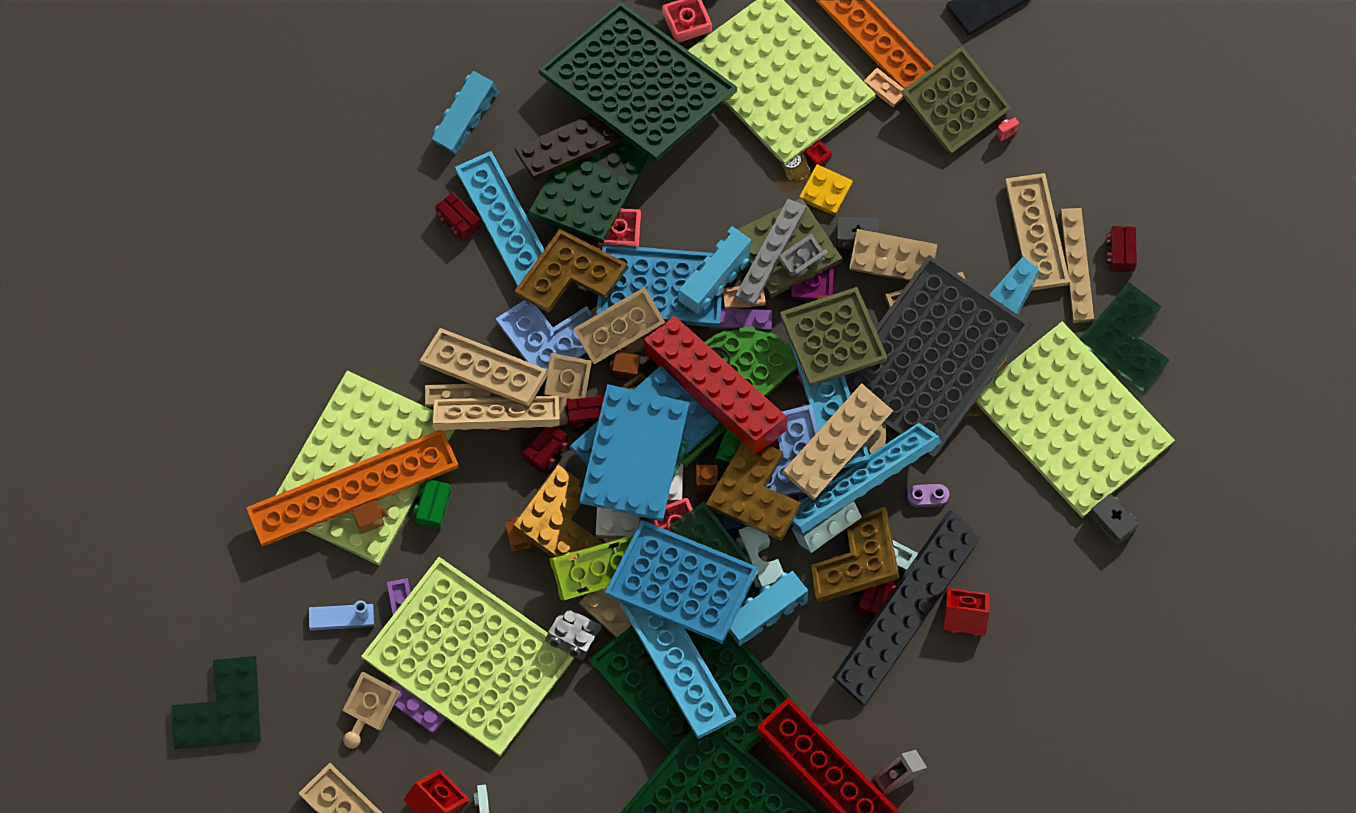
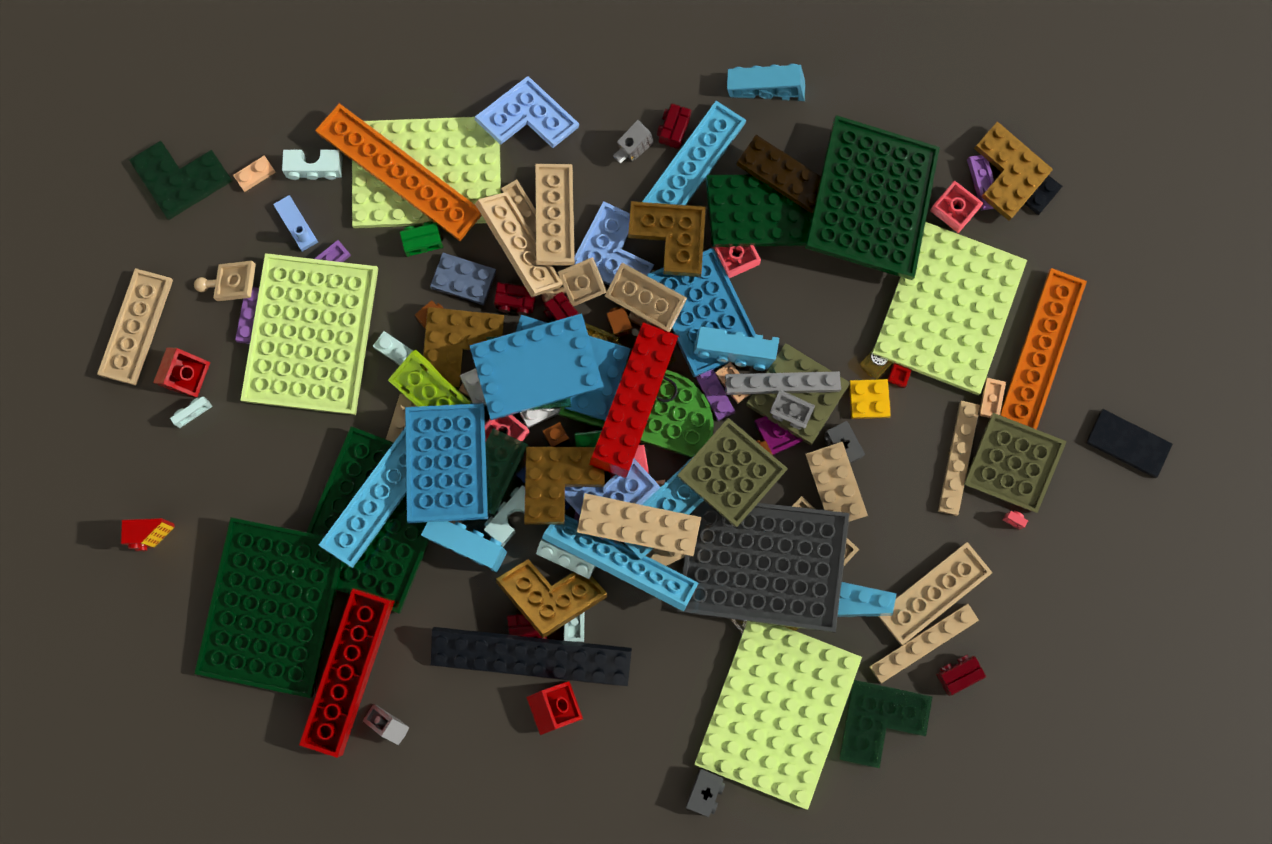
camera: 60 degrees right, 10 degrees up
(263, 631) = (254, 173): none -> light nougat plate
(283, 584) = (328, 165): none -> light aqua arch
(356, 336) = (528, 106): none -> light blue plate
(369, 516) = (380, 196): dark orange brick -> none
(453, 254) = (633, 142): none -> light grey torso
(495, 487) = (463, 278): none -> sand blue plate
(530, 587) = (392, 348): none -> light aqua plate
(573, 633) = (368, 402): plate -> none
(924, 145) = (958, 458): none -> tan plate
(928, 497) = (642, 623): lavender plate -> none

